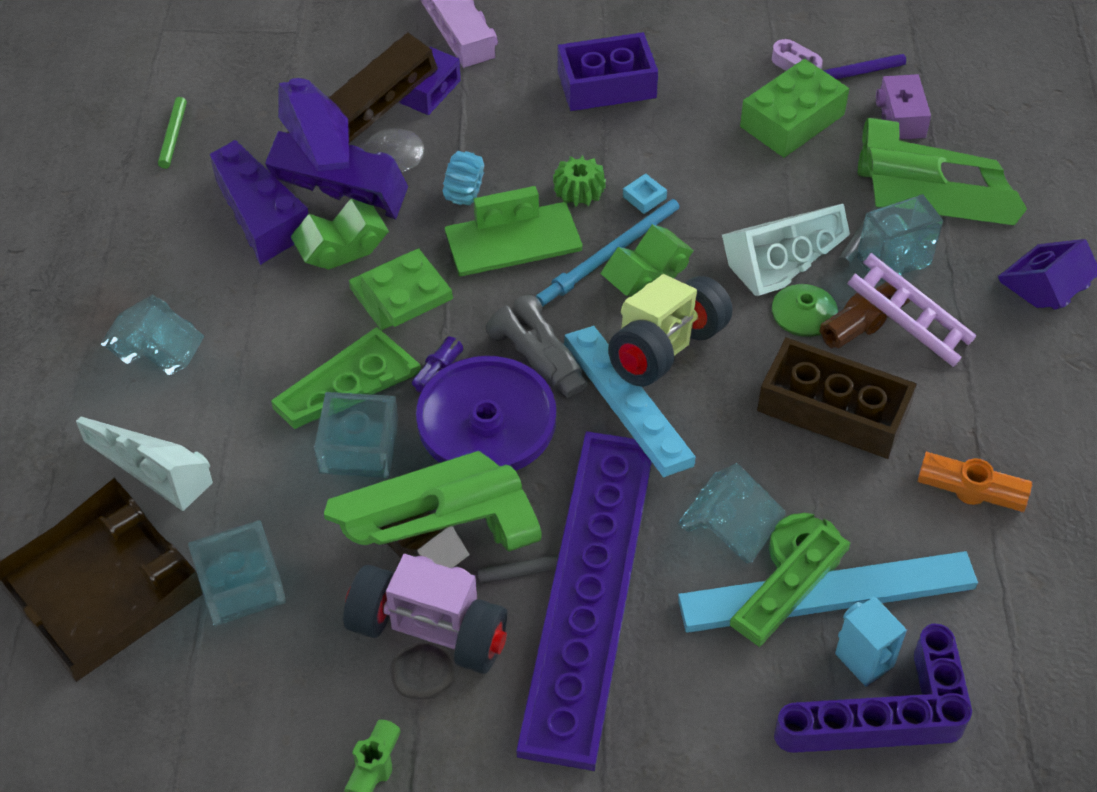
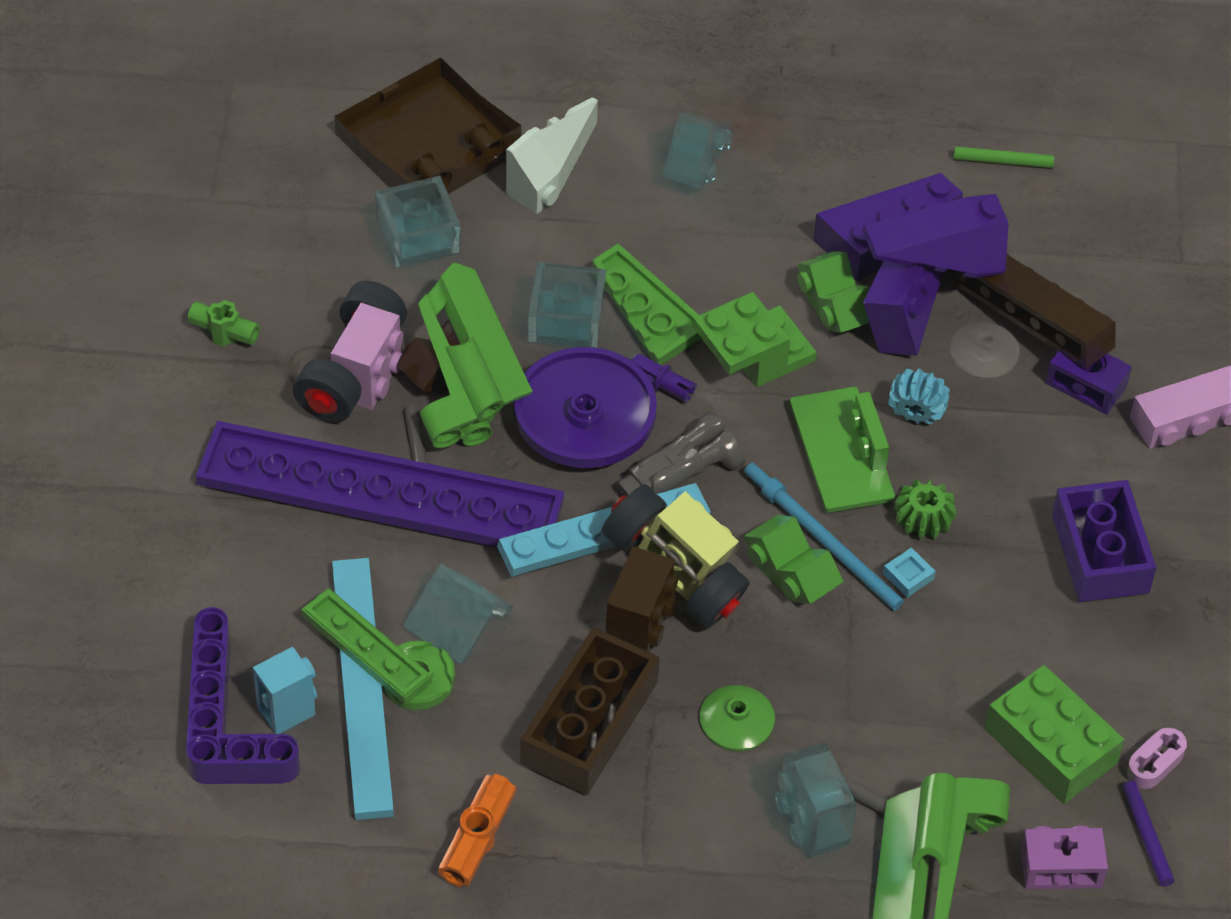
camera: 90 degrees right, 0 degrees up
(717, 360) = (642, 599): none -> dark brown brick
(778, 250) = (818, 691): light aqua wedge -> none
(856, 318) = (720, 766): reddish brown piece -> none
(930, 309) = (712, 823): lavender bar -> none

